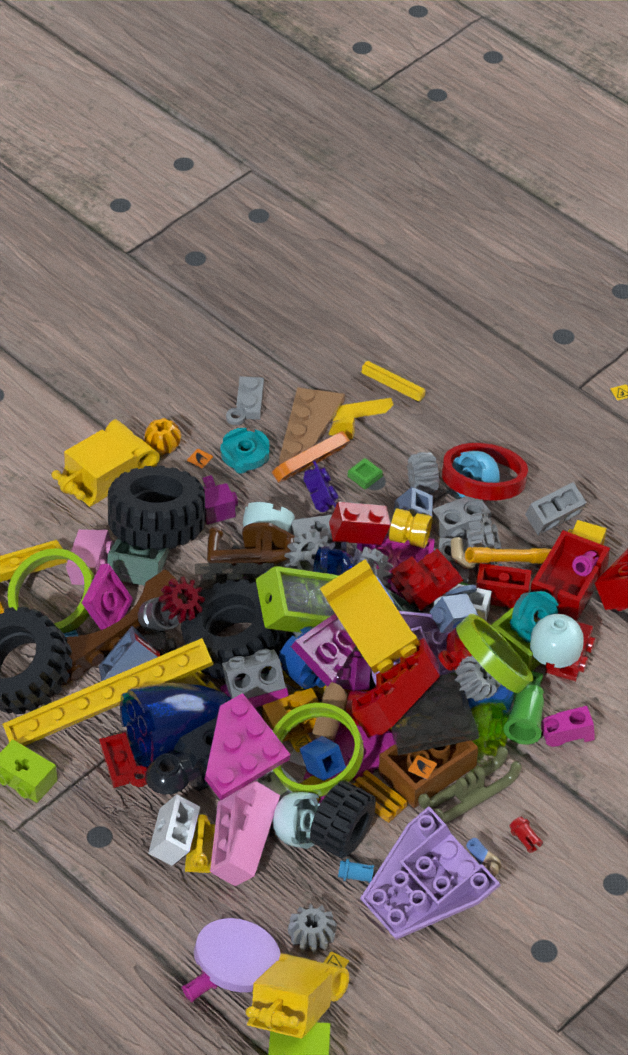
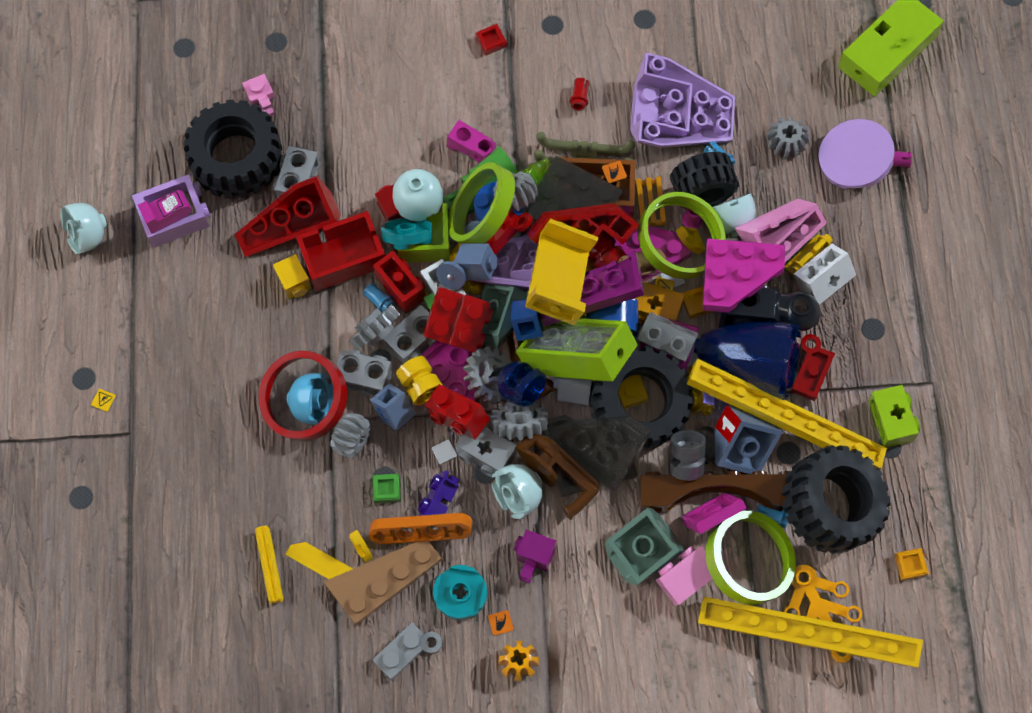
camera: 135 degrees left, 20 degrees up
(100, 460) = (593, 672): yellow piece -> none
(156, 507) = (565, 559): black tyre -> none
(187, 593) = (675, 428): dark red gear -> none
(295, 995) = (853, 82): yellow piece -> none
(323, 758) = (676, 236): blue brick -> none
(337, 960) = (789, 110): yellow sticker -> none
(458, 553) = (409, 322): tan arm -> none
(484, 856) = (622, 97): arm -> none
(487, 555) = (396, 297): light orange piece -> none
(555, 508) = (287, 316): light grey brick -> none
(587, 560) = (332, 235): dark pink pin -> none

